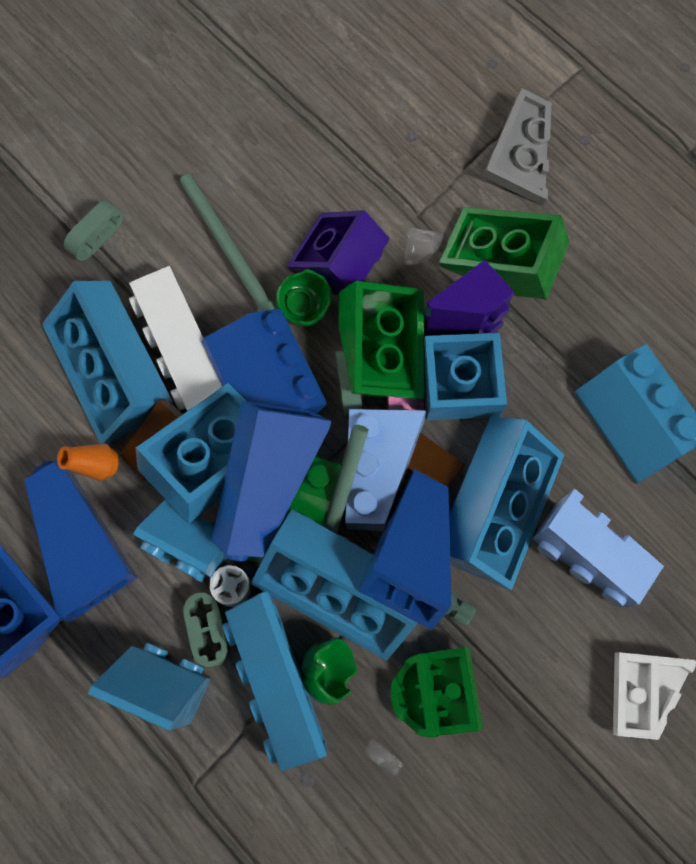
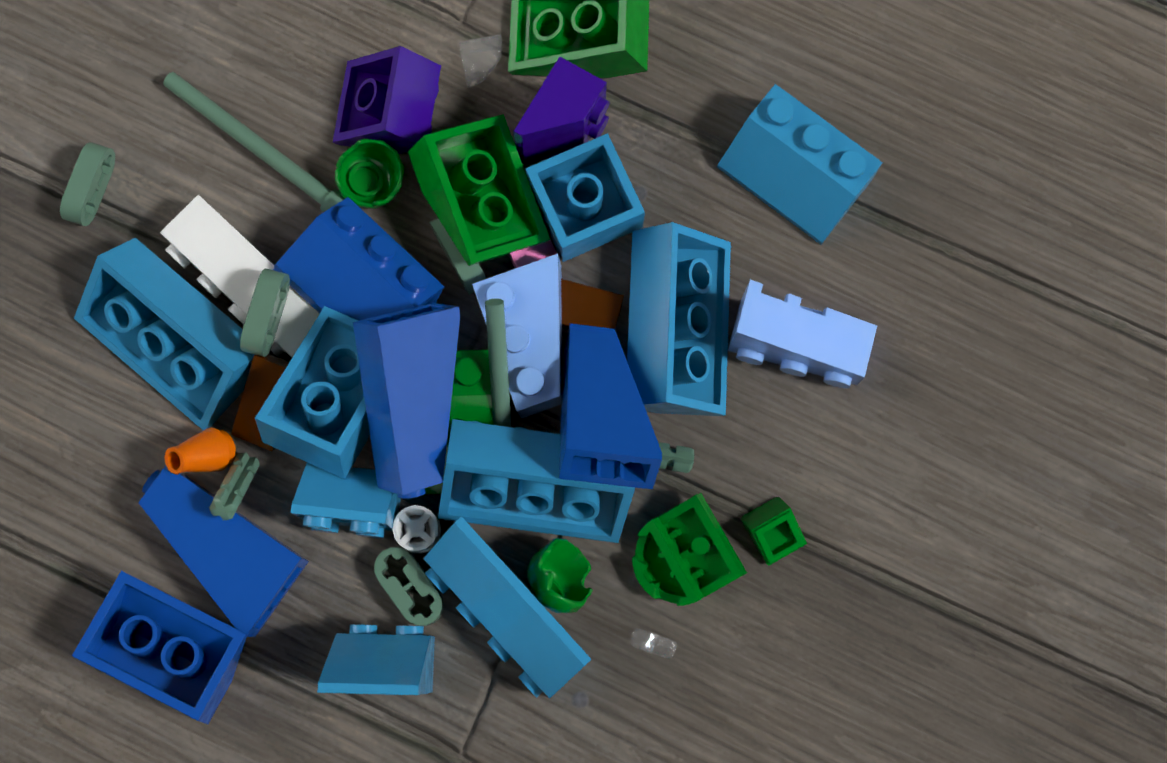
camera: 20 degrees left, 5 degrees up
(102, 496) = (234, 486): none -> sand green axle
(180, 370) = (265, 312): none -> sand green beam
(517, 701) = (773, 530): none -> green slope
(646, 692) = (905, 467): white wing -> none

